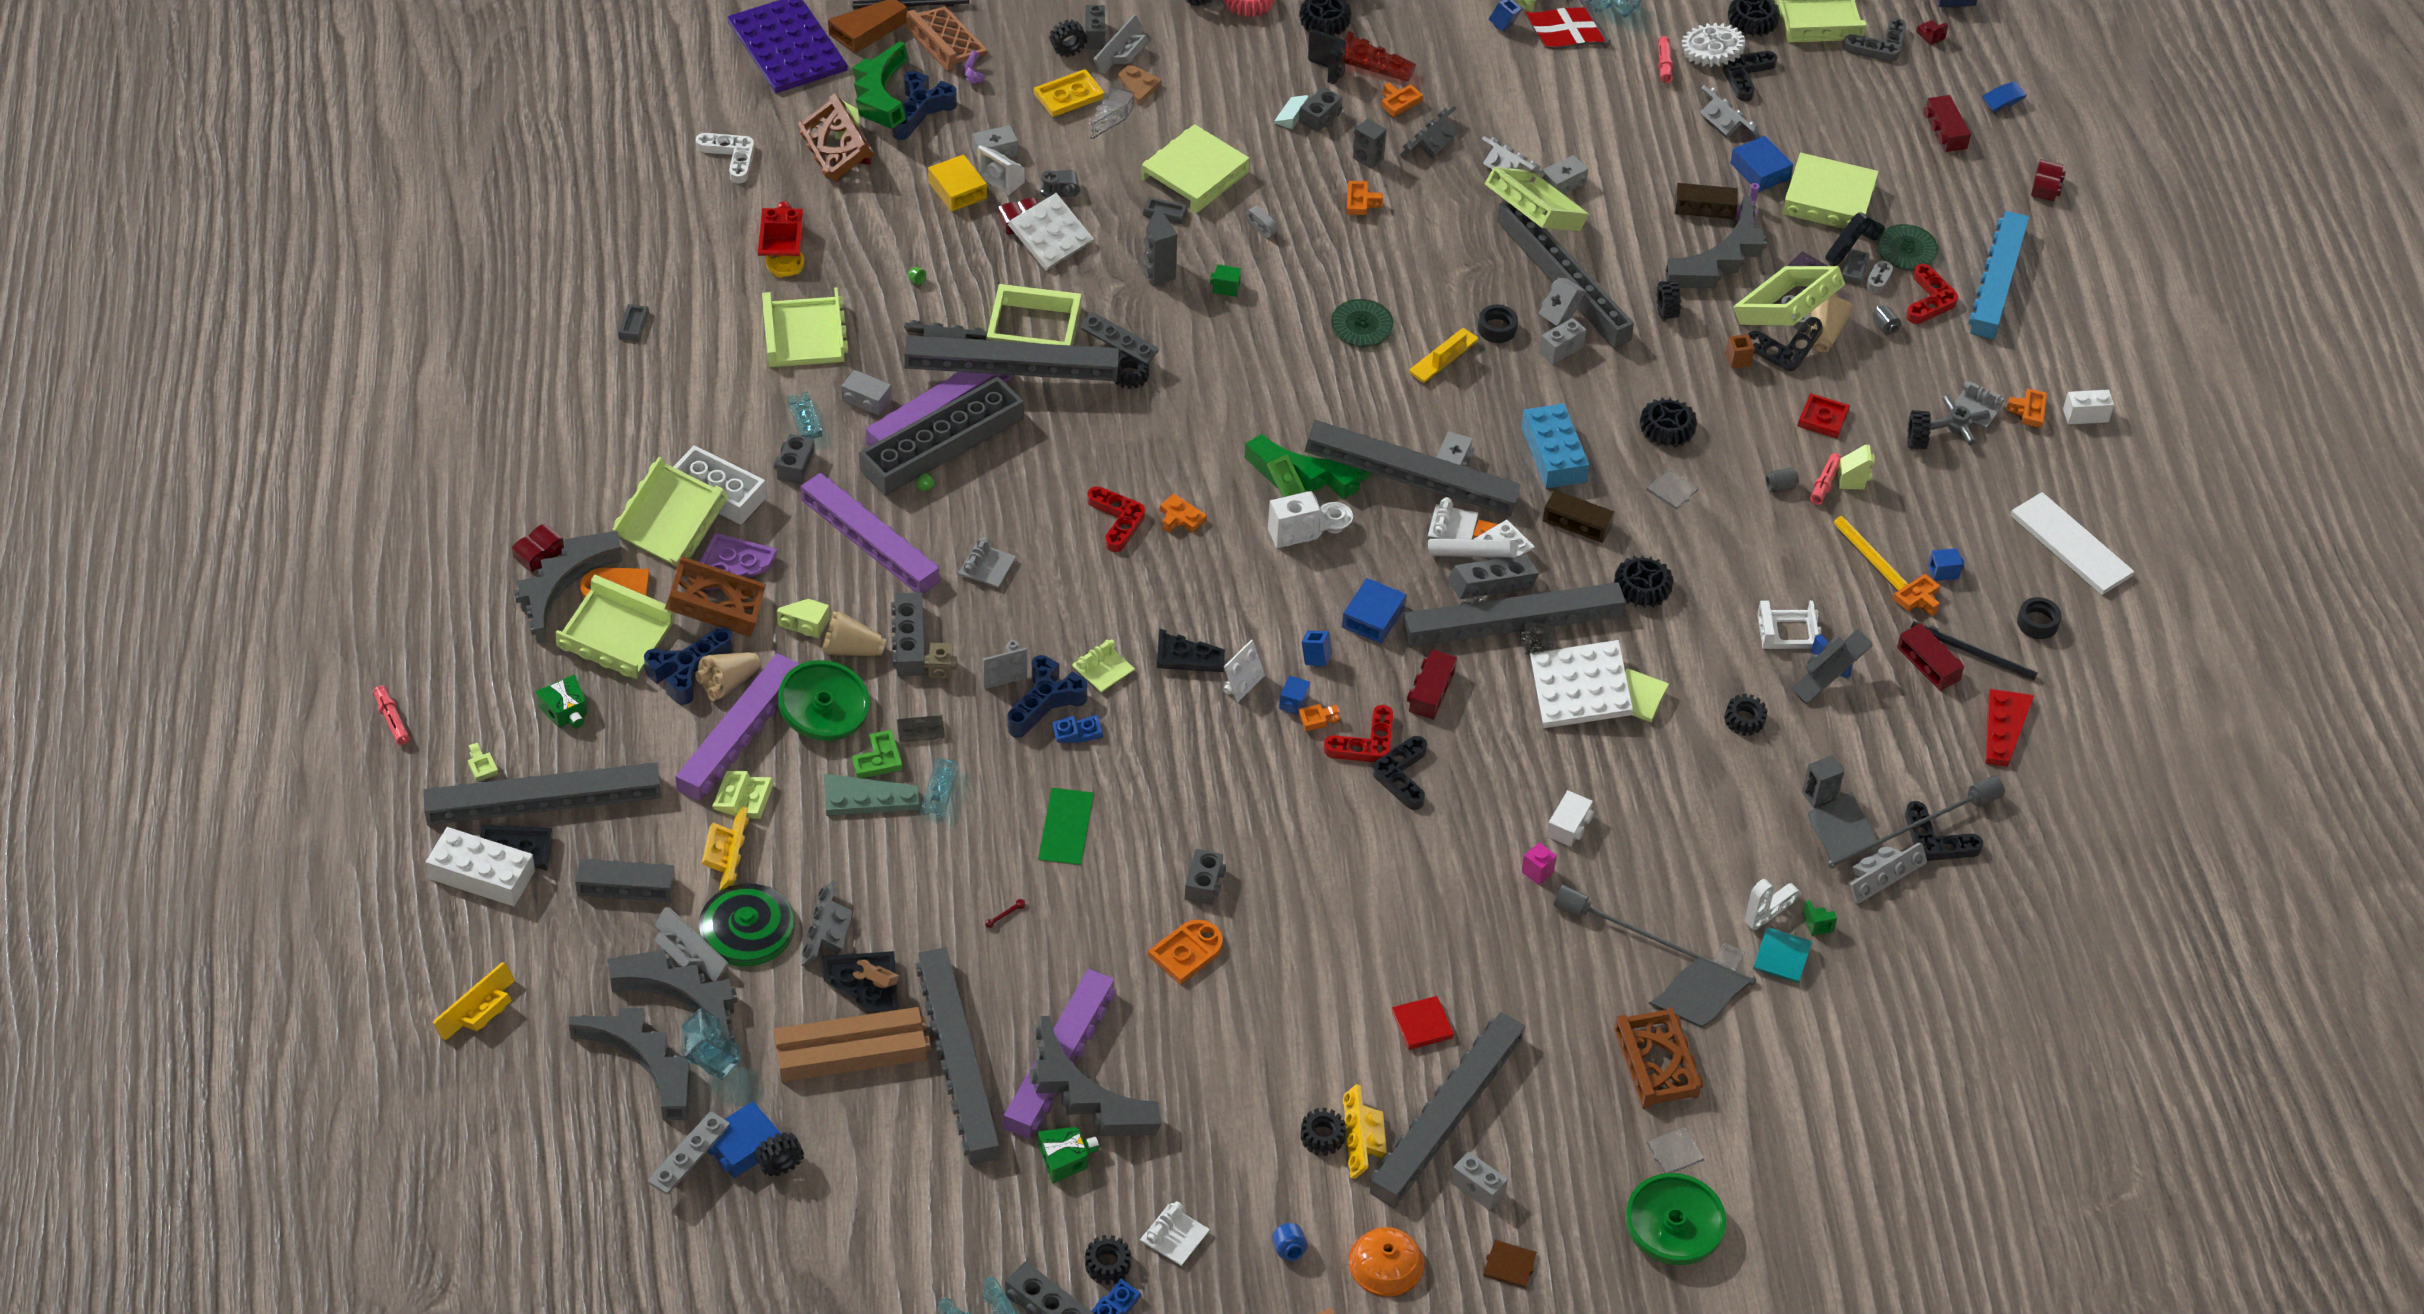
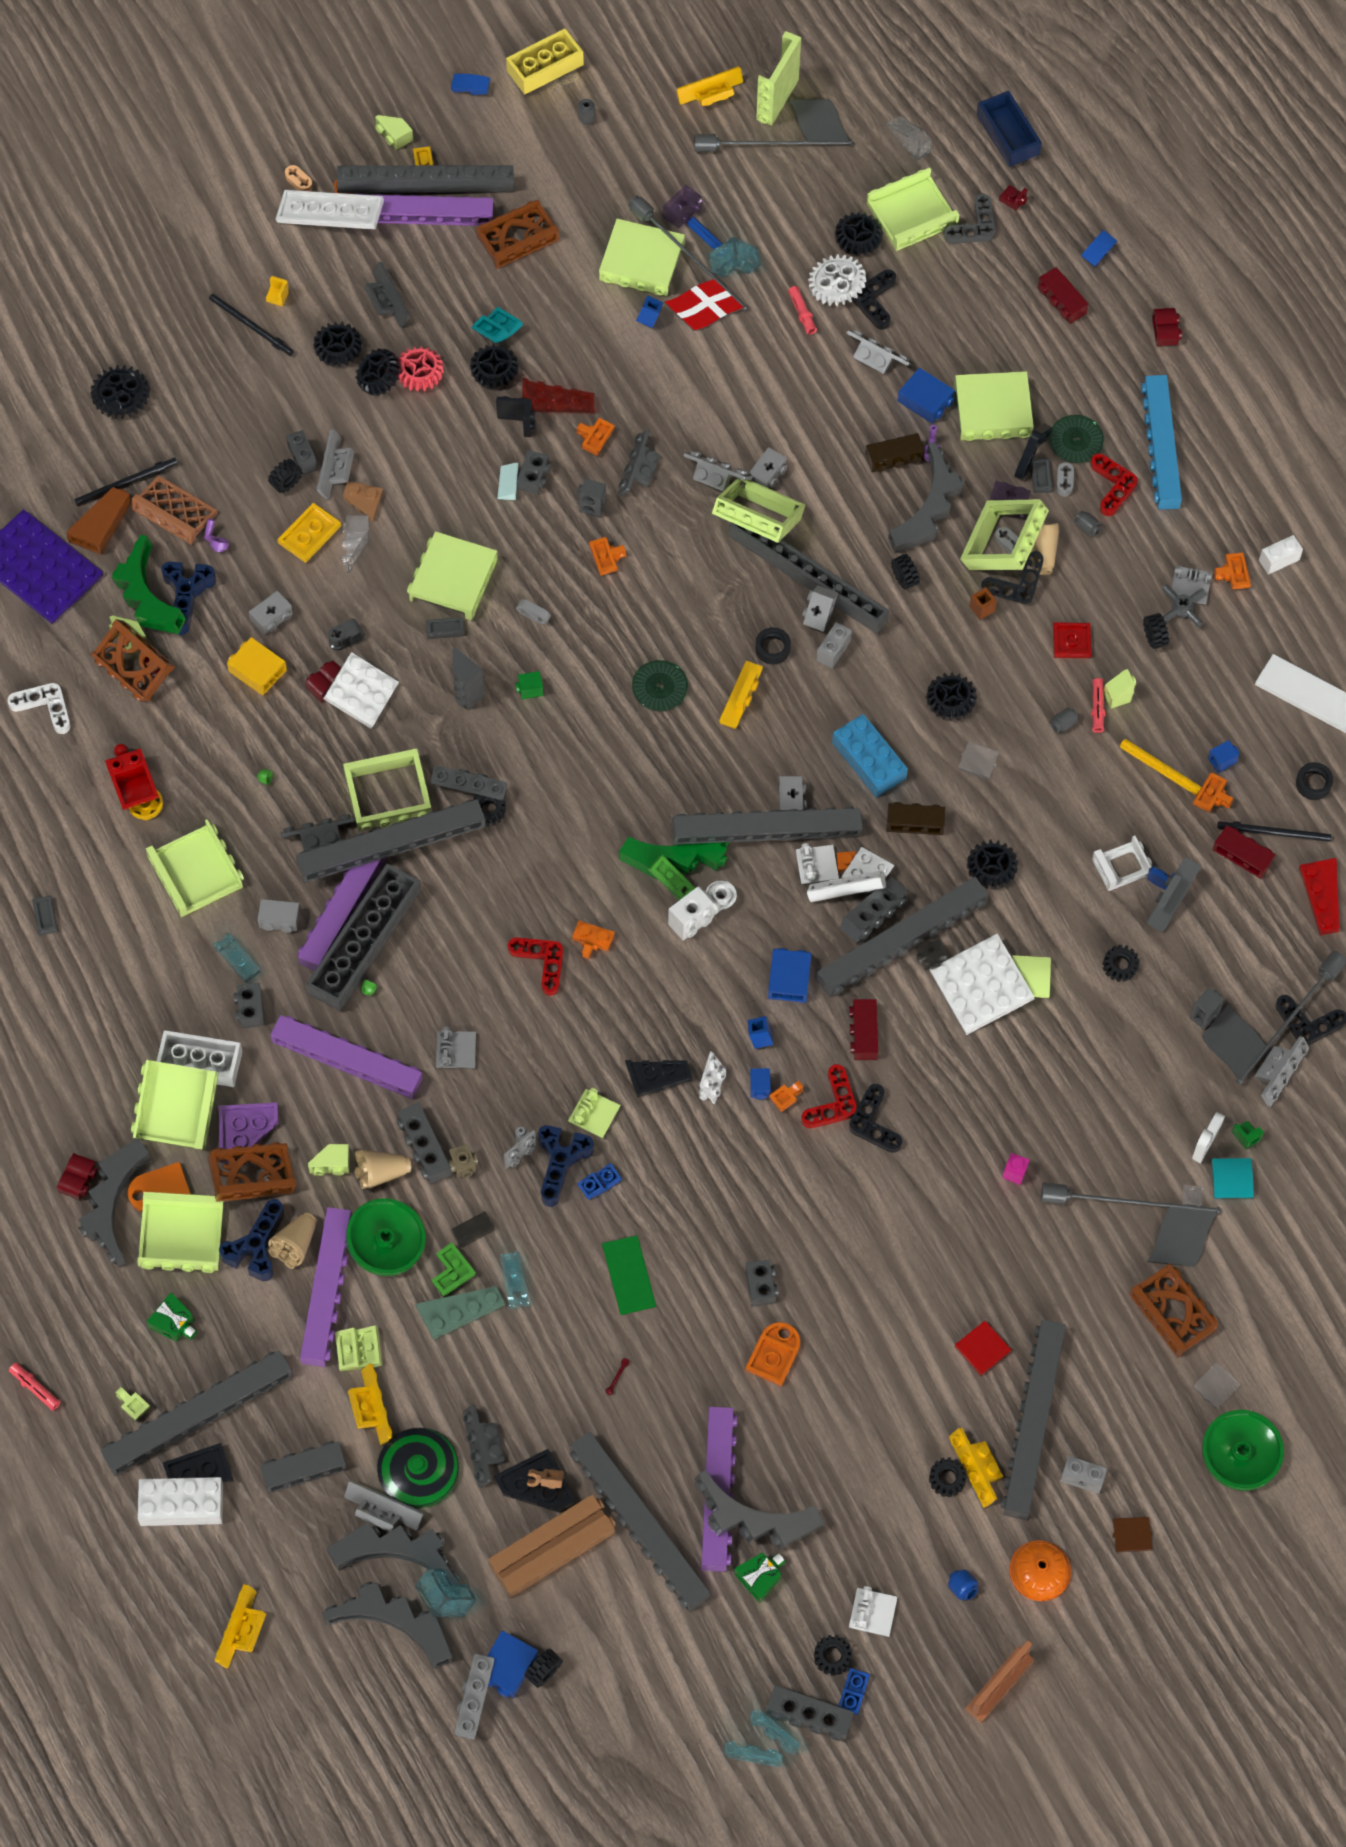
camera: 20 degrees left, 15 degrees up
(999, 170) = (288, 640): white slope -> none
(1569, 818) = (1023, 1116): white brick -> none

